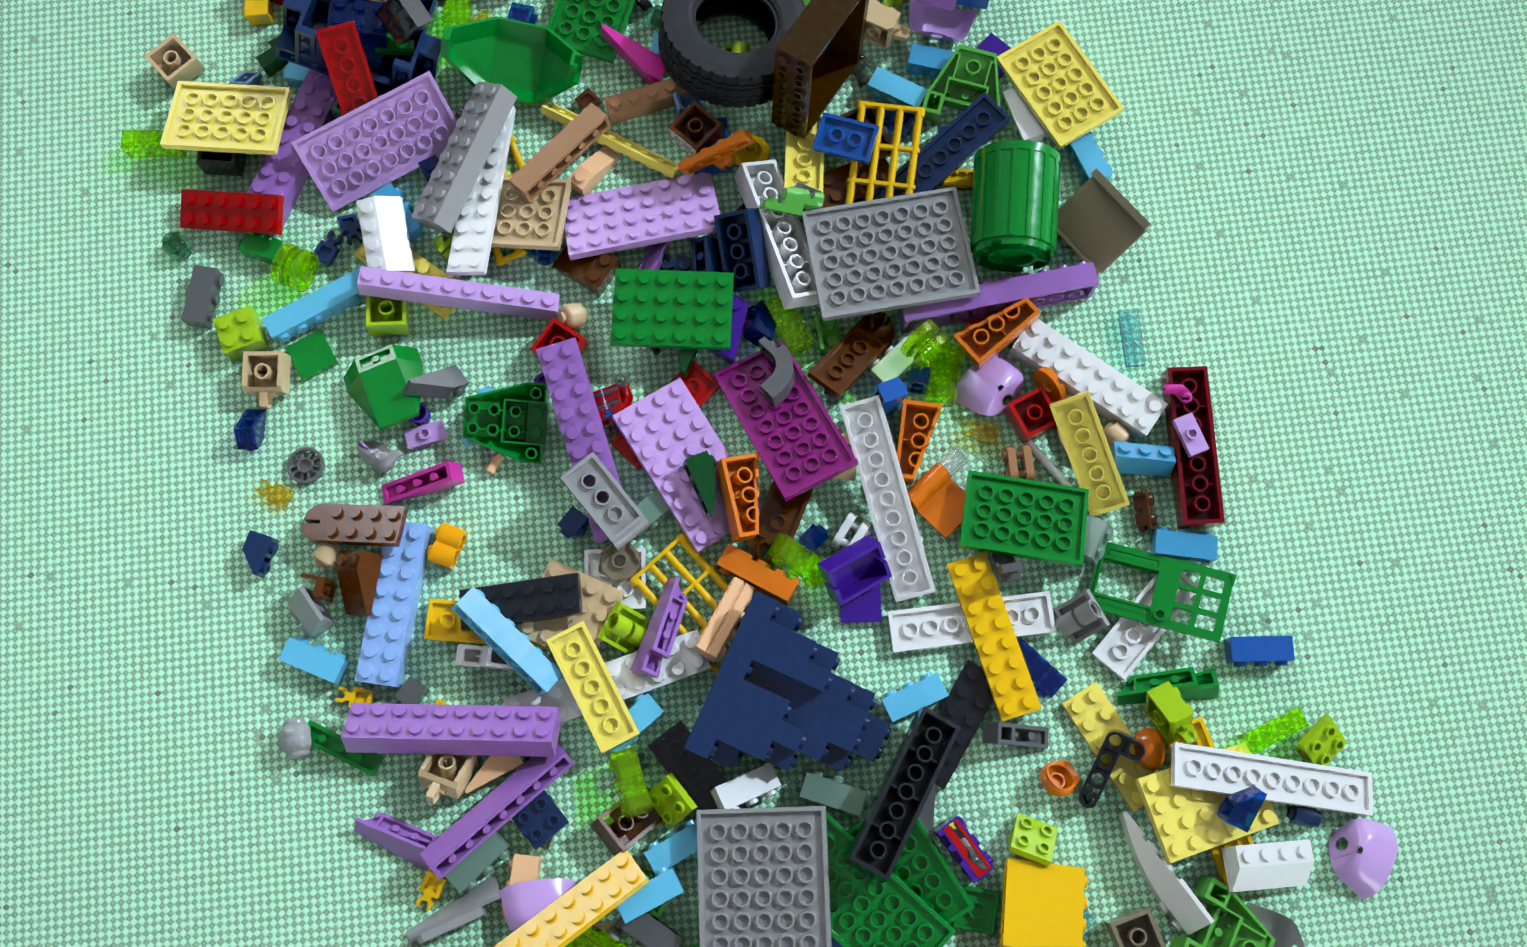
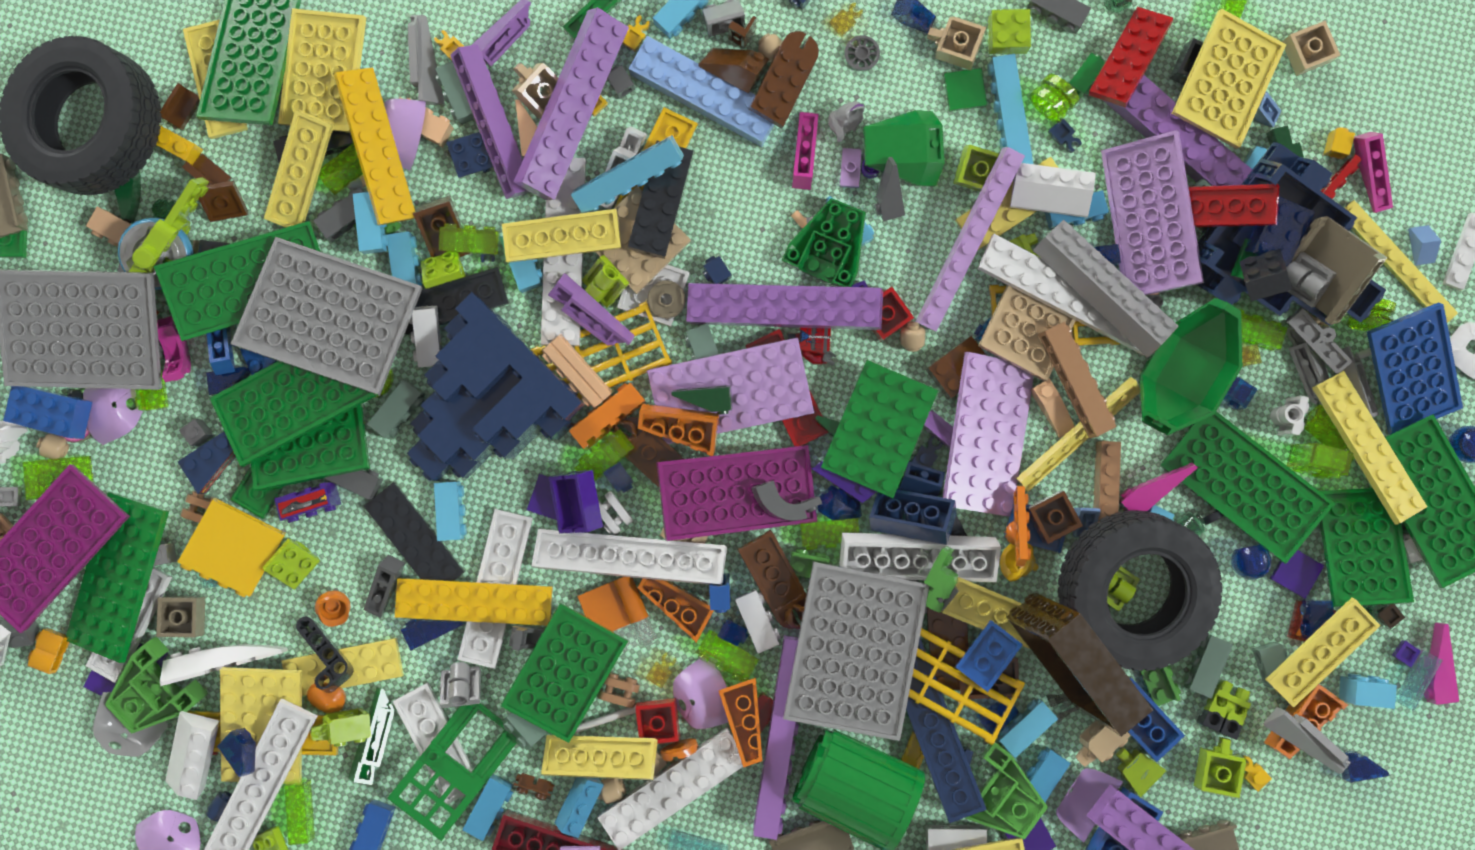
camera: 115 degrees right, 10 degrees up
(350, 227) = (1079, 161): dark blue plate -> none
(447, 546) = (739, 153): light orange brick -> none
(586, 98) = (1127, 427): copper plate -> none
(617, 517) = (701, 307): light grey hinge -> none
(902, 795) = (364, 465): black brick -> none
(925, 344) = (755, 648): clear neon green wheel -> none

